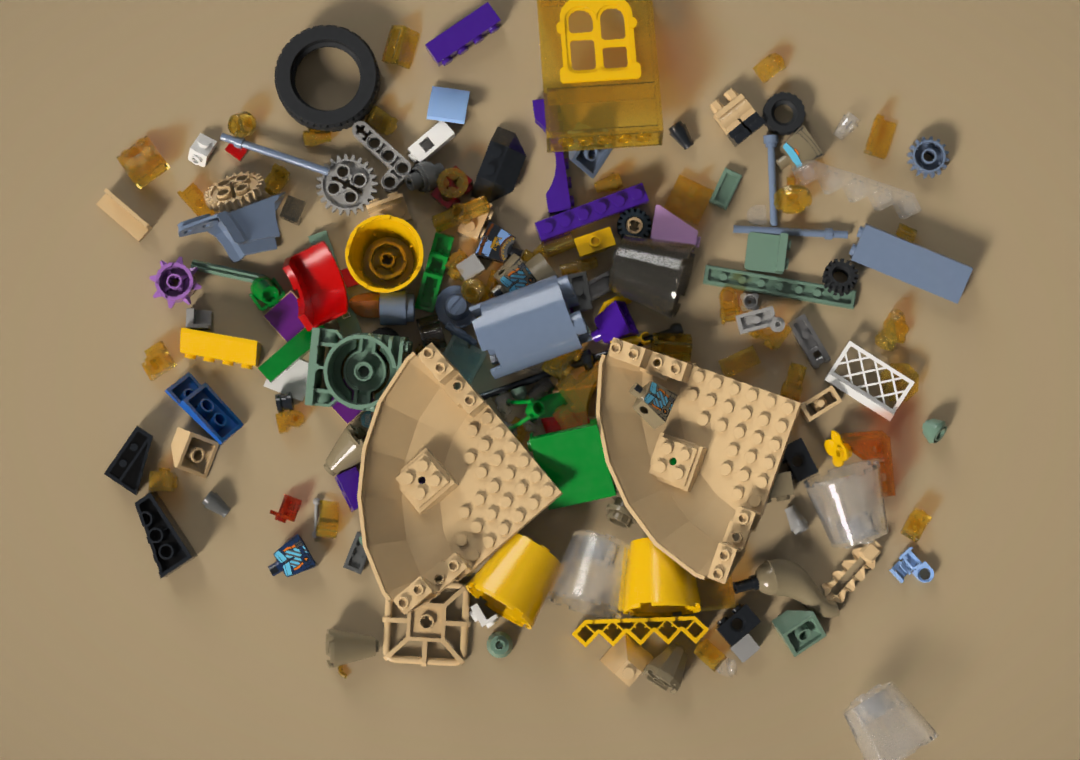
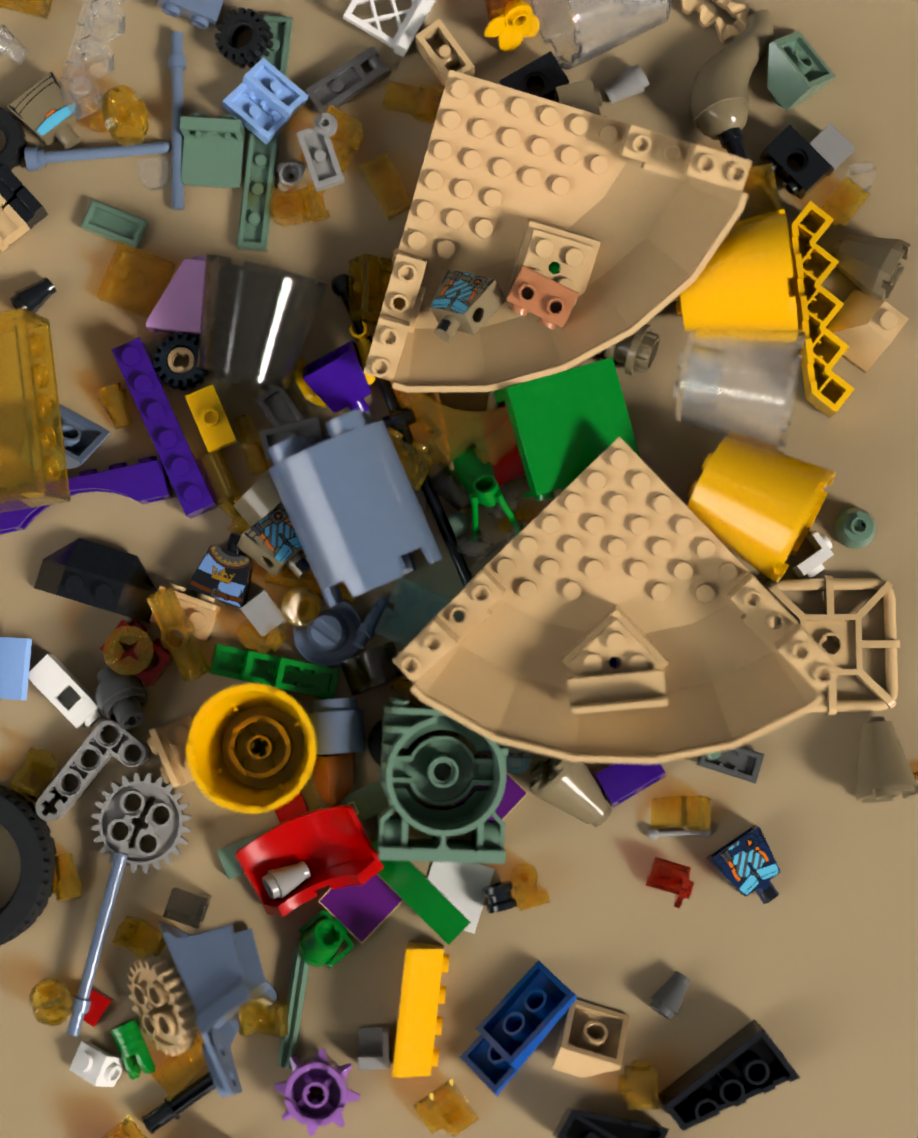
camera: 90 degrees left, 0 degrees up
(175, 199) = (169, 1110): none -> black axle
(209, 172) = (133, 1048): none -> green hinge
(222, 253) = (263, 1017): none -> clear yellow bracket
(305, 271) = (285, 879): none -> light grey cone
(403, 479) = (617, 691): none -> tan panel
(652, 451) = (541, 297): none -> nougat brick
(798, 288) = (265, 101): none -> light blue slope

